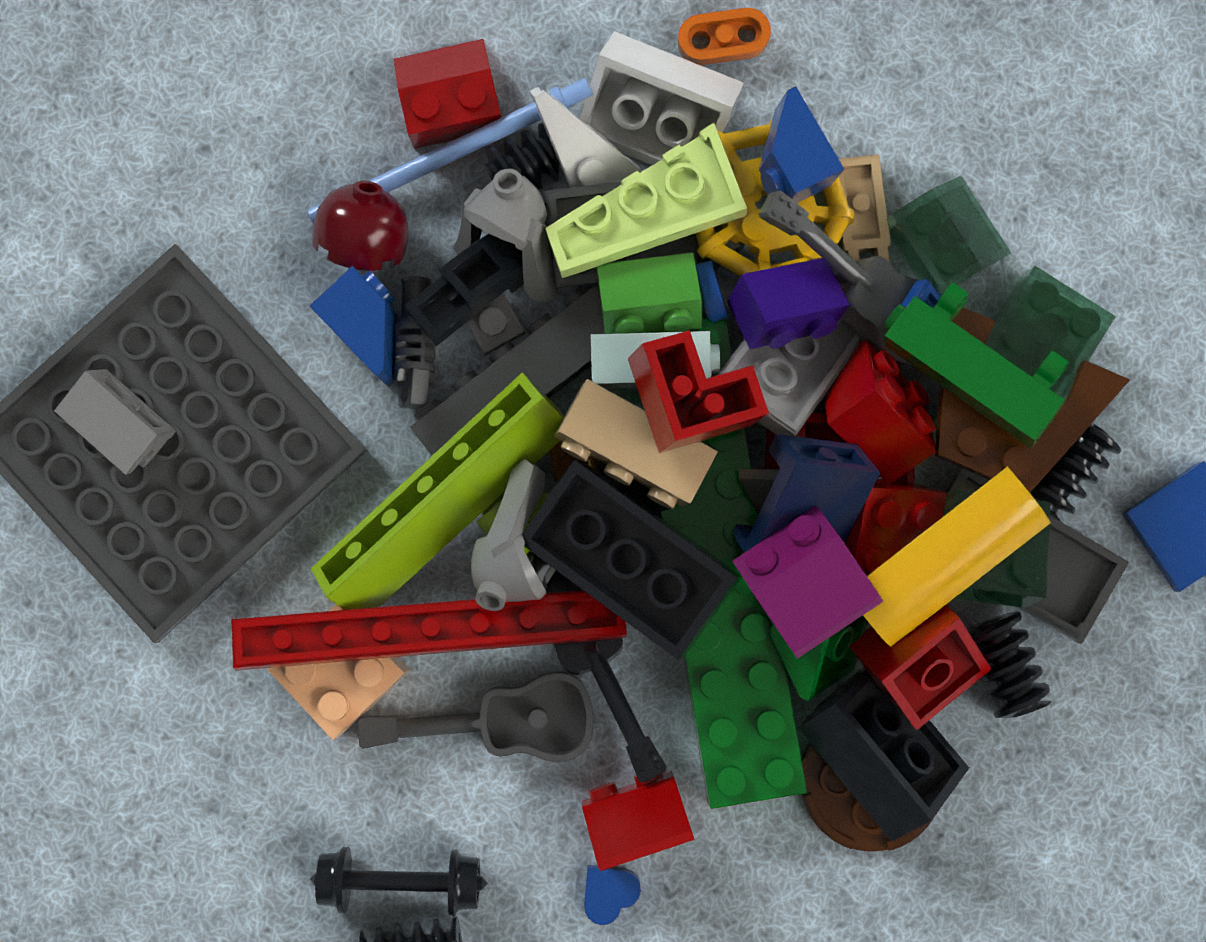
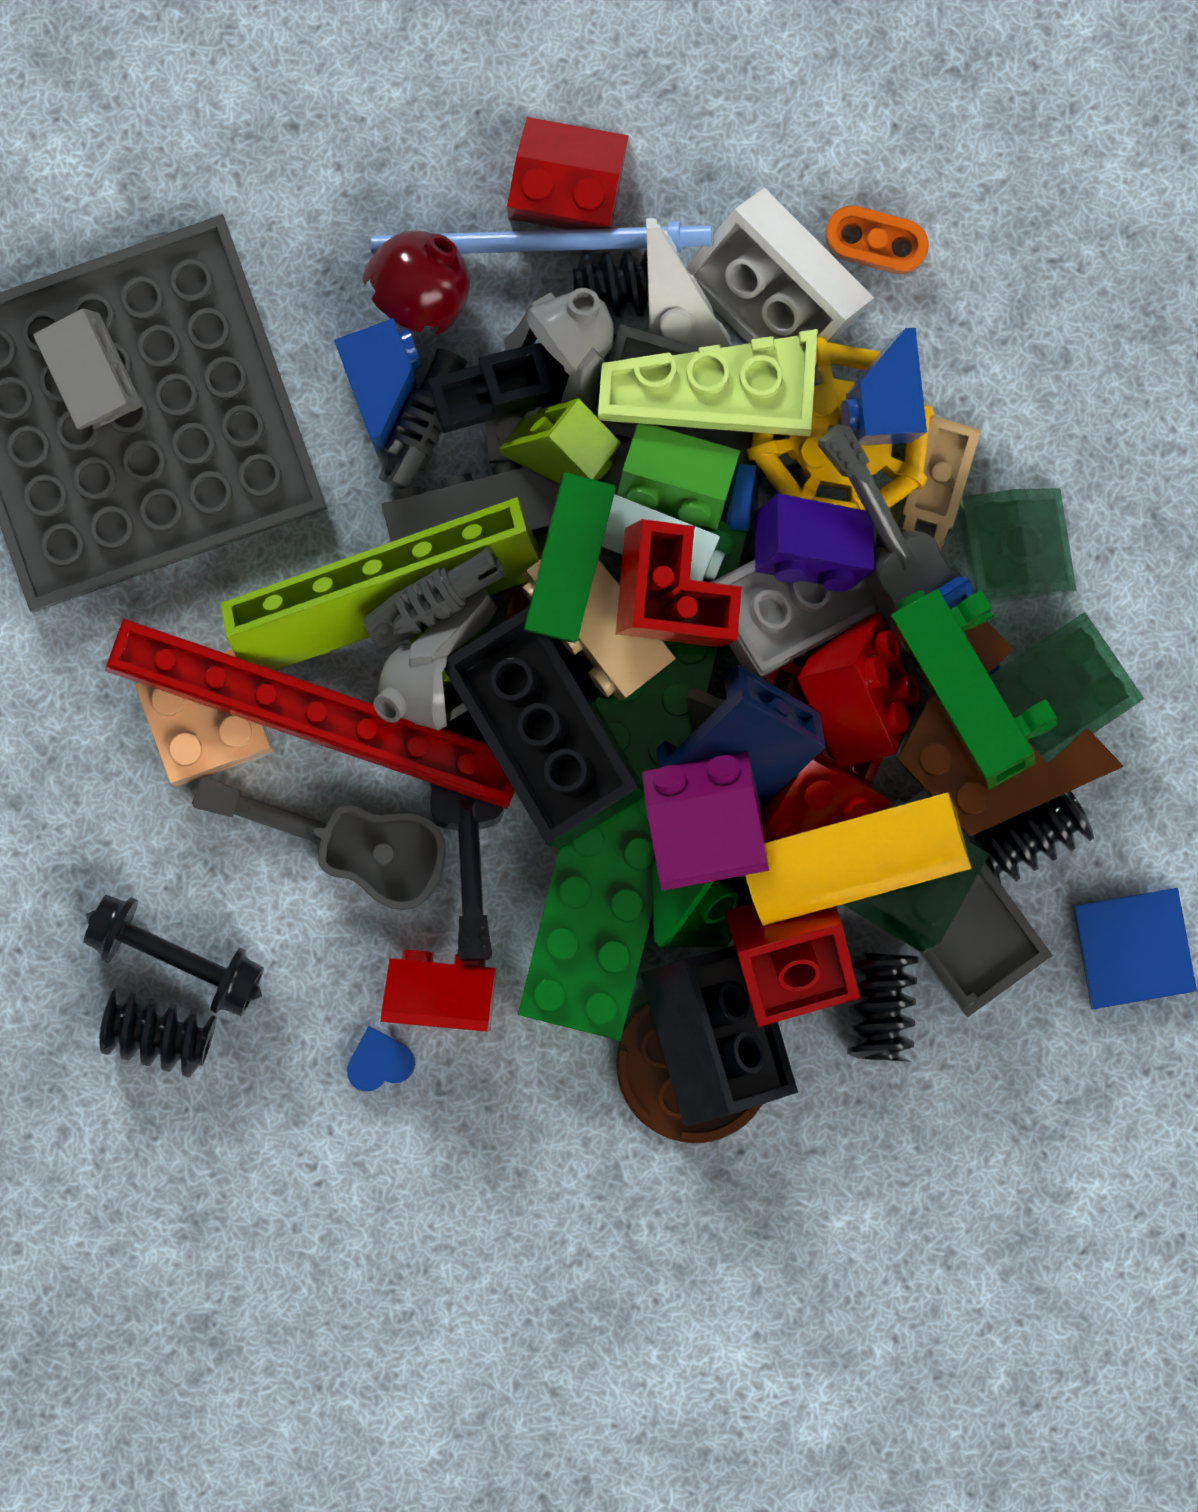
camera: 25 degrees right, 0 degrees up
(486, 490) = (431, 598): none -> dark grey hinge
(541, 311) = (562, 440): none -> lime slope
(591, 404) = (569, 558): none -> green tile

